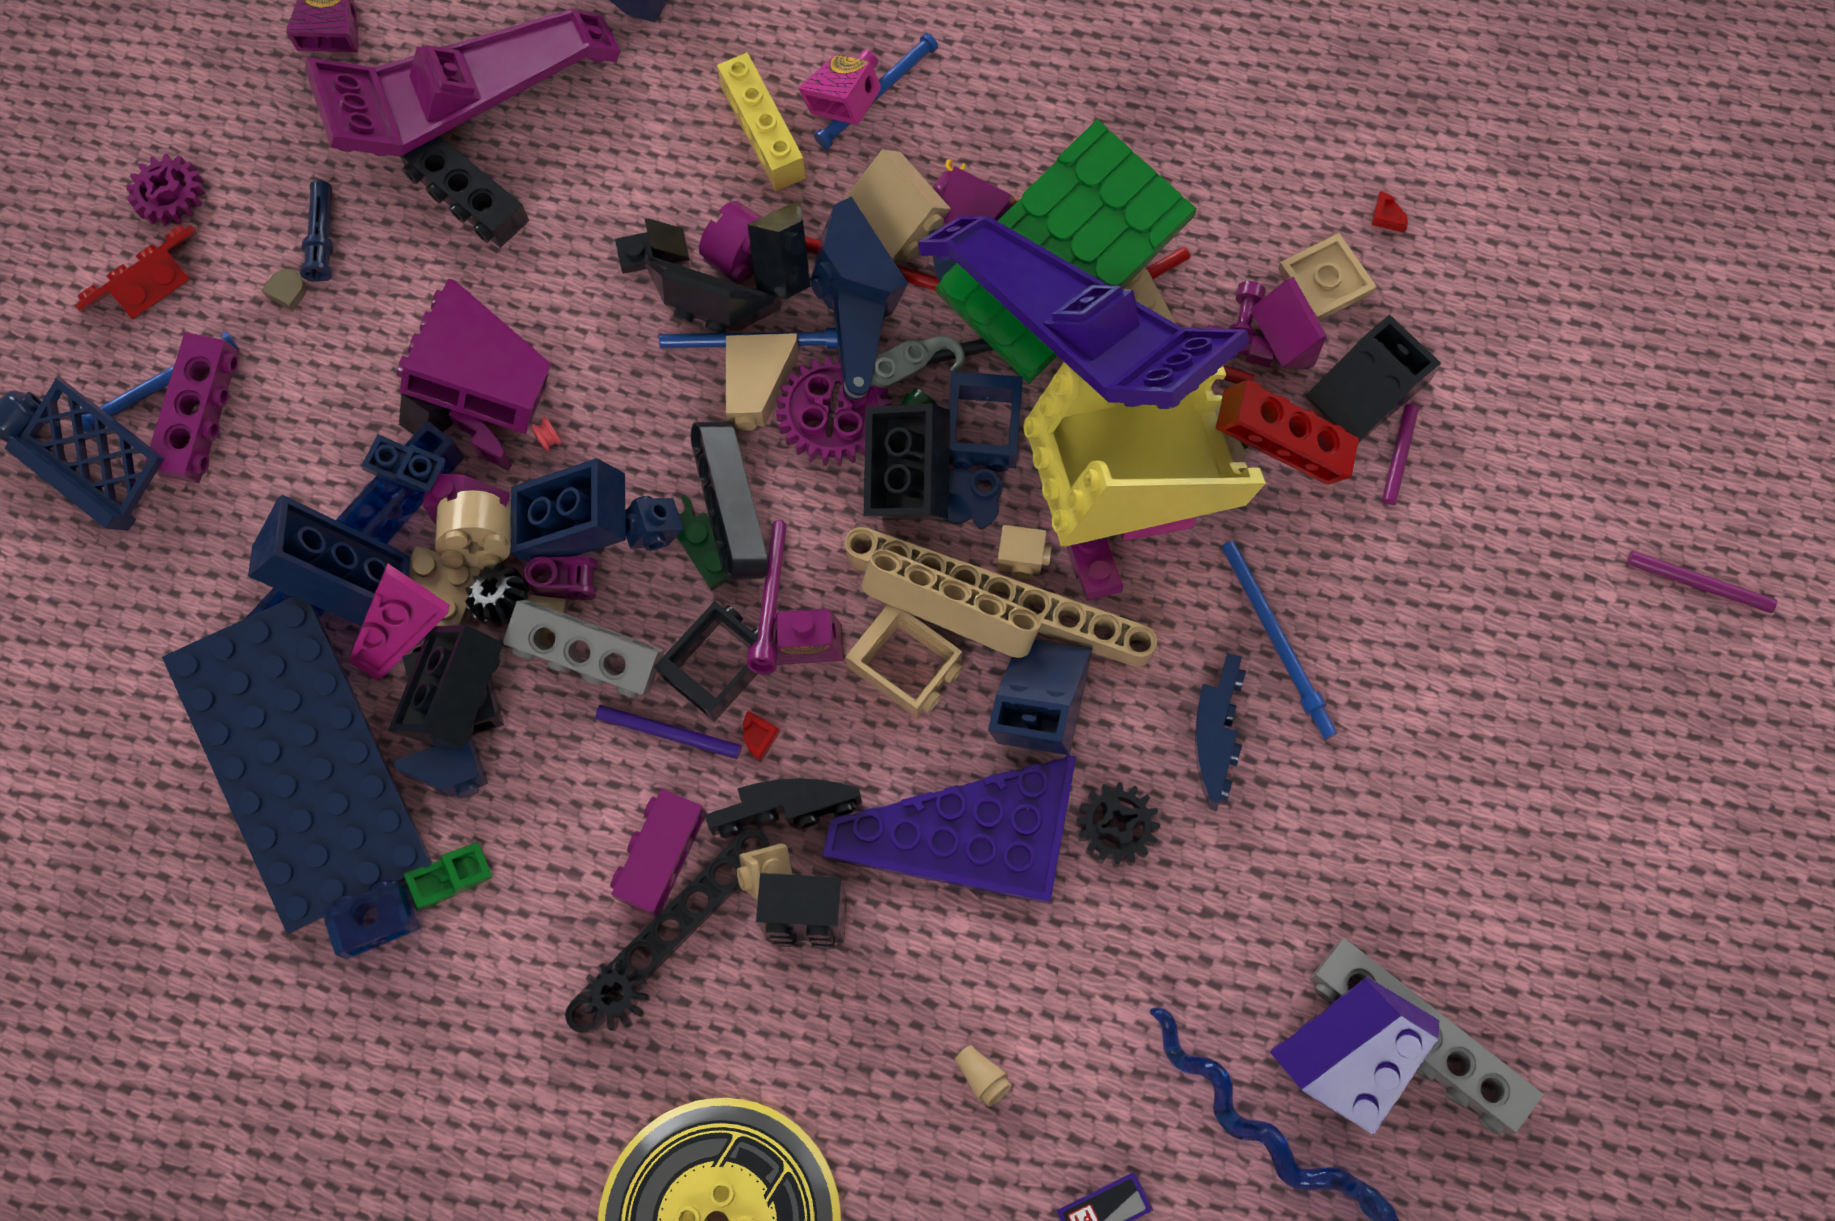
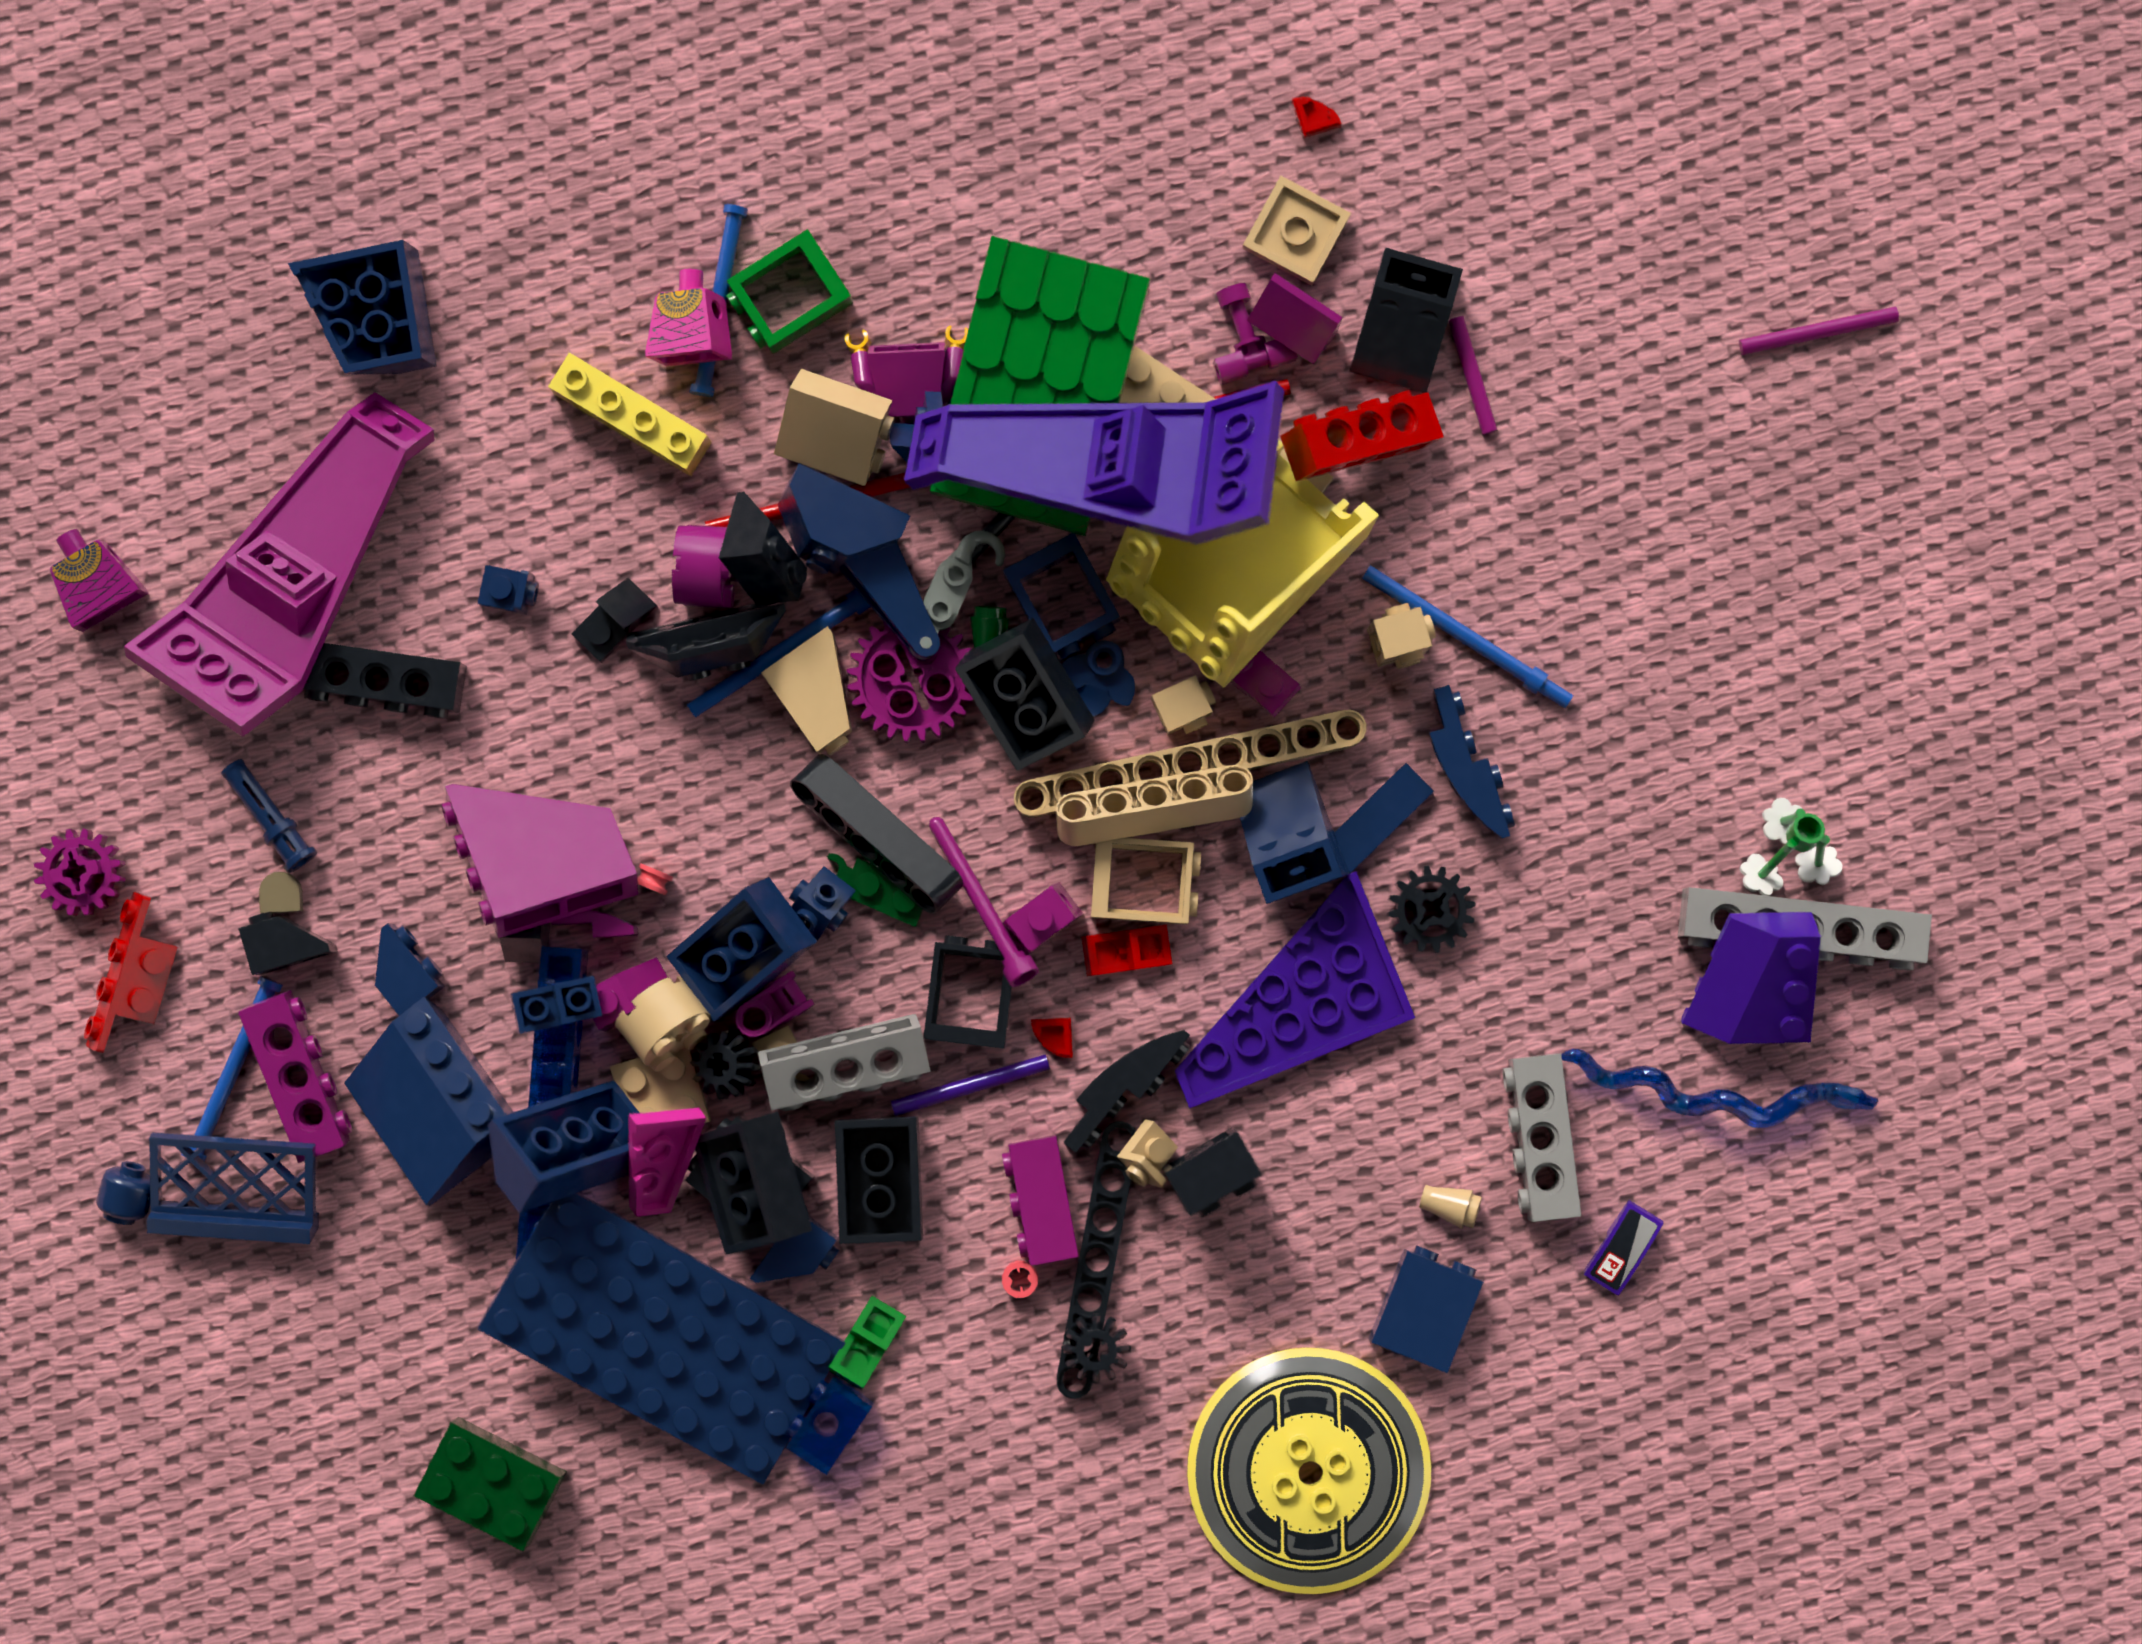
camera: 35 degrees left, 15 degrees up
(89, 792) = (490, 1483): none -> dark green brick
(255, 317) = (280, 943): none -> black slope
(260, 464) = (428, 1100): none -> dark blue slope
(322, 388) = (402, 972): none -> dark blue slope
(545, 752) = (878, 1180): none -> black brick
(588, 901) = (1032, 1278): none -> coral bush
(594, 186) = (508, 589): none -> dark blue bracket
(857, 706) = (1126, 950): none -> red slope
(905, 1148) = (1426, 1308): none -> dark blue brick
(928, 134) = (838, 300): none -> green window
(1124, 730) = (1381, 815): none -> dark blue tile
(1129, 1015) = (1562, 1197): none -> light grey brick
(1226, 598) = (1401, 636): none -> tan brick
(1466, 950) = (1798, 832): none -> white plant

